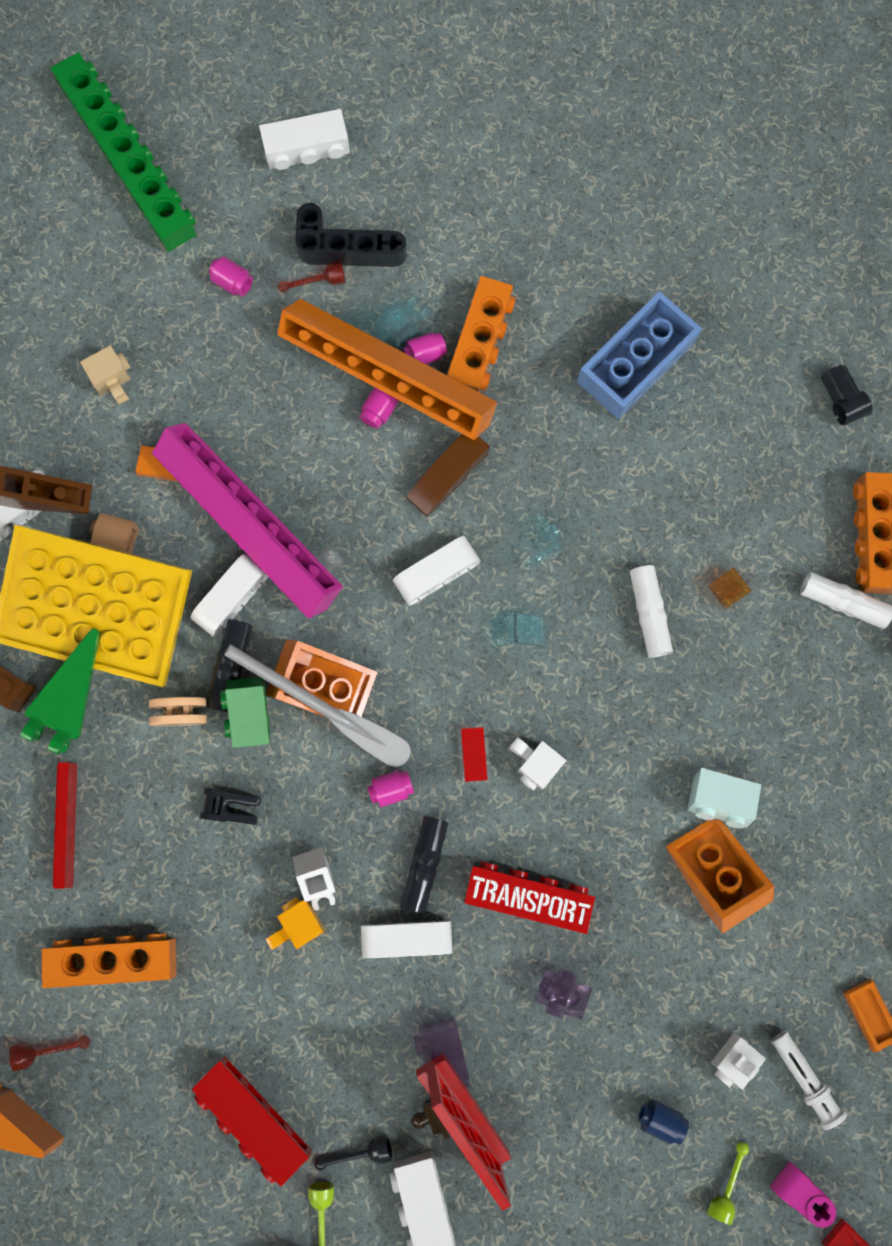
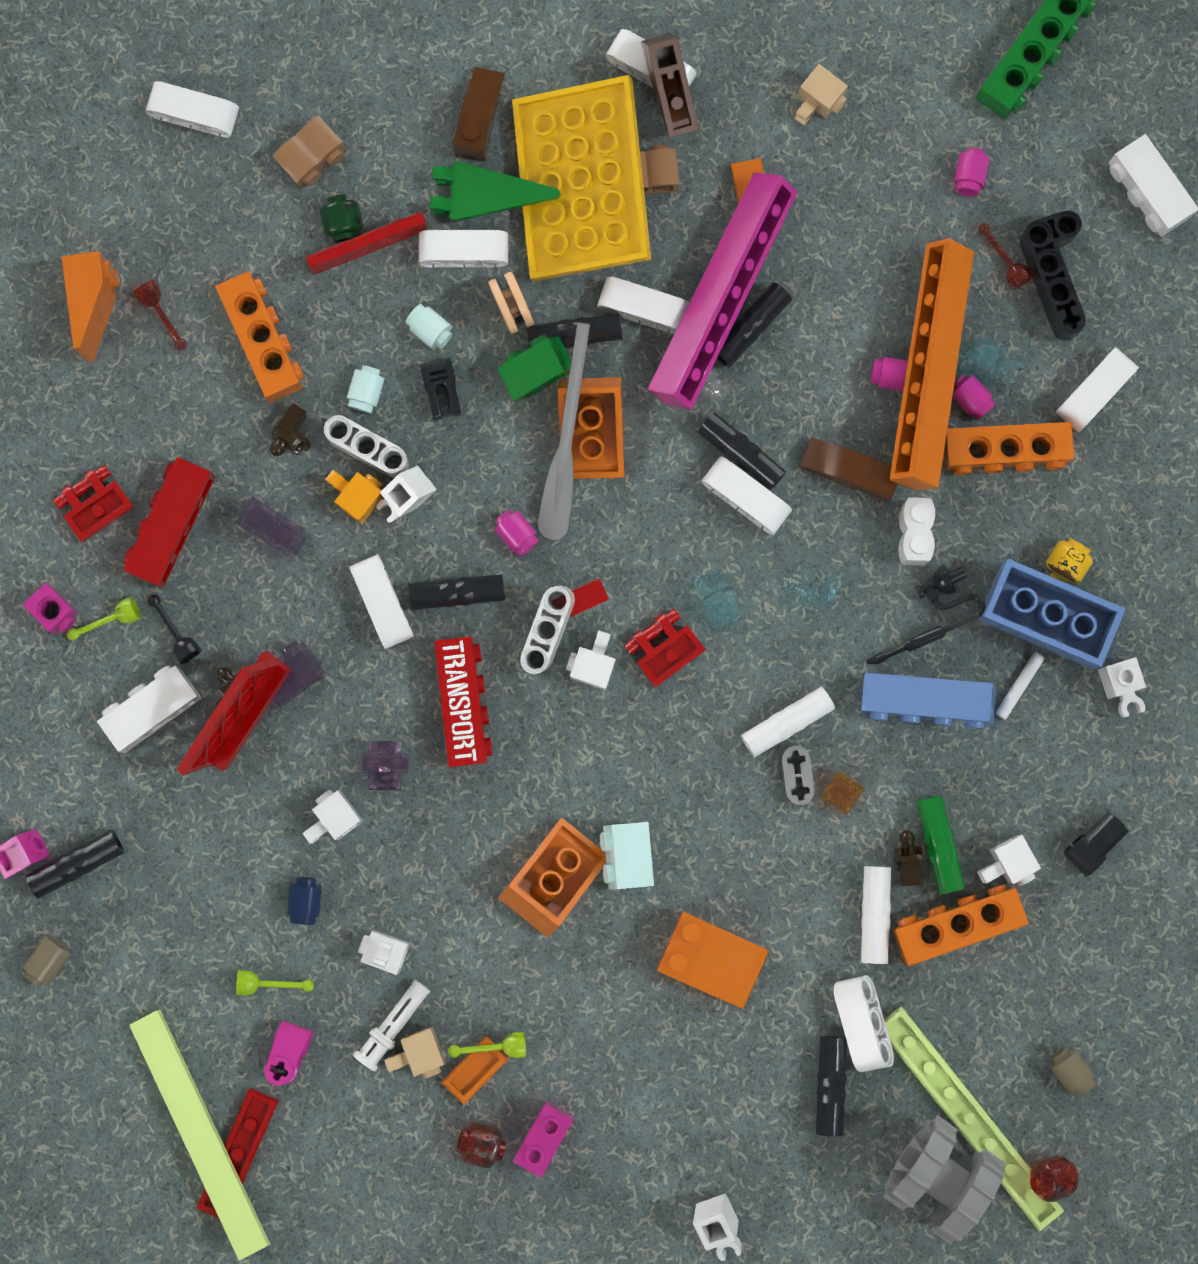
camera: 70 degrees right, 5 degrees up
(30, 840) = (341, 218): none -> dark green head
(107, 737) = (462, 247): none -> white beam
(167, 796) = (429, 326): none -> light aqua brick
(201, 879) = (365, 389): none -> light aqua brick
(211, 1187) = (99, 510): none -> red plate
(212, 971) = (286, 432): none -> dark brown piece
(241, 903) = (355, 436): none -> white beam
(284, 504) = (753, 323): none -> black axle
(297, 1019) = (272, 528): none -> clear purple brick
(395, 559) = (741, 451): none -> black axle
(459, 247) = (1097, 389): none -> white beam
(498, 806) = (536, 640): none -> white beam
(517, 435) = (915, 522): none -> white brick
(554, 692) = (670, 655): none -> red plate
(576, 433) = (944, 583): none -> black piece
(593, 1061) = (335, 817): none -> white brick
(597, 324) = (1069, 561): none -> yellow head
(677, 481) = (929, 699): none -> medium blue wedge
(687, 406) = (1020, 685): none -> white piece
(702, 614) = (789, 775): none -> light grey beam
(717, 320) = (1122, 681): none -> white brick
(804, 522) = (940, 844): none -> green axle
(807, 553) = (909, 859): none -> dark brown piece
(839, 468) = (1012, 860): none -> white brick
(839, 760) = (712, 960): none -> orange slope
(843, 1062) = (420, 1052): none -> tan brick
(863, 971) = (512, 1045): none -> lime hinge

